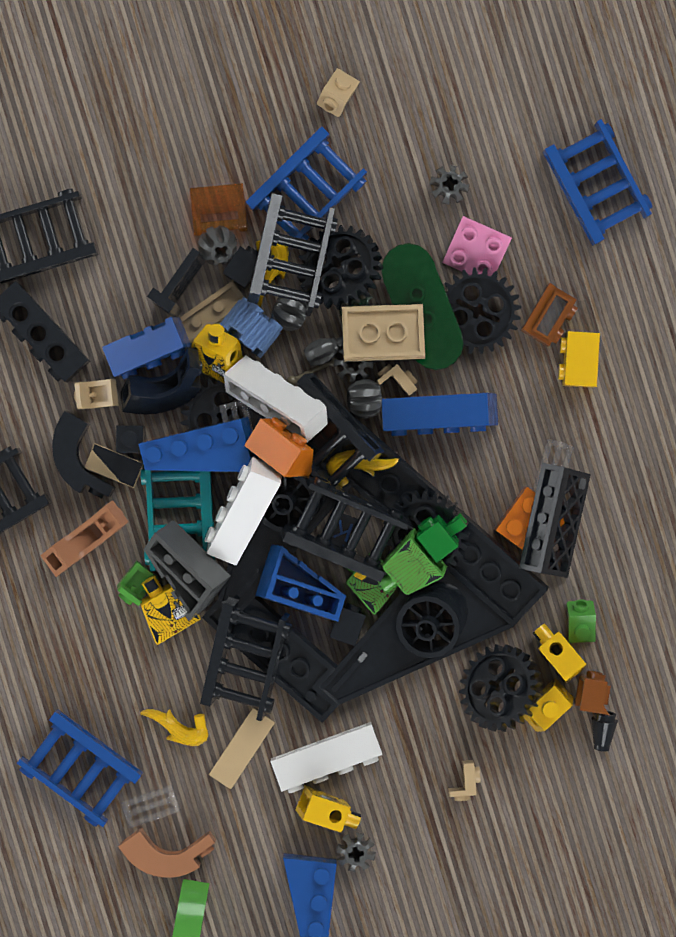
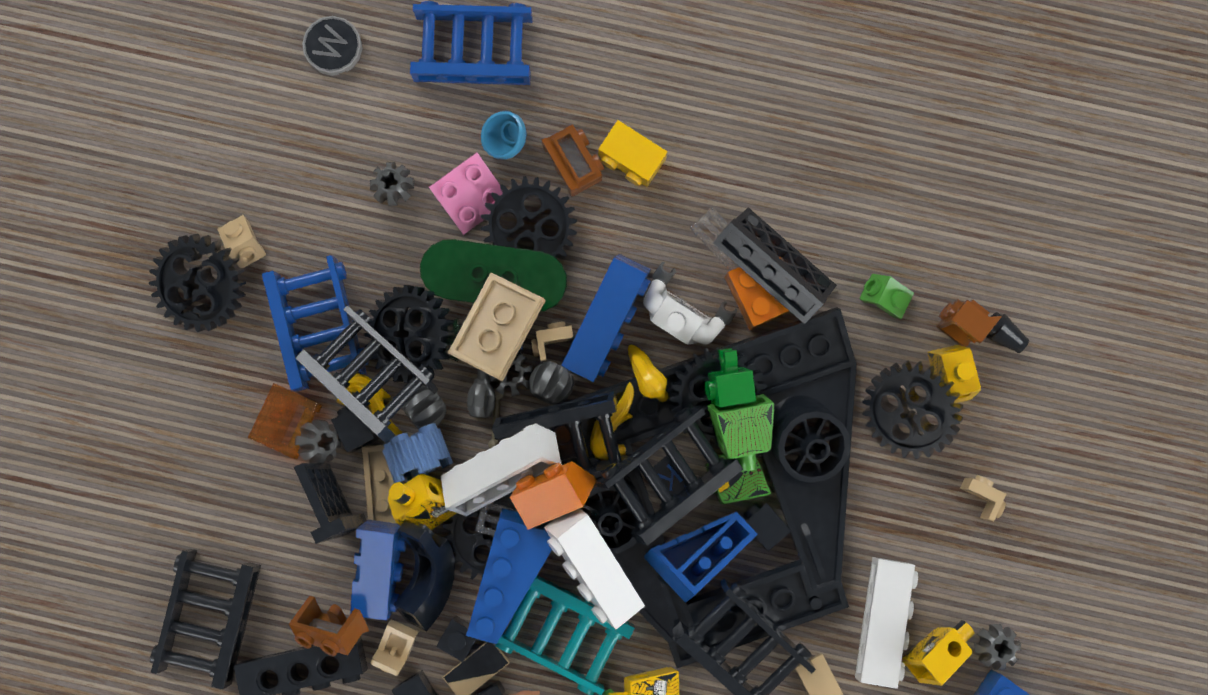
camera: 70 degrees left, 5 degrees down
(81, 338) = (328, 631): none -> dark orange window
(187, 567) = (618, 656): dark grey wedge -> none
(290, 102) = (197, 282): none -> black gear
(409, 472) = (649, 379): none -> yellow piece
(471, 469) = (679, 316): none -> white torso
(534, 71) = (332, 45): none -> black tile
(537, 250) = (503, 135): none -> dark azure piece
(567, 663) = (922, 328): yellow torso -> none

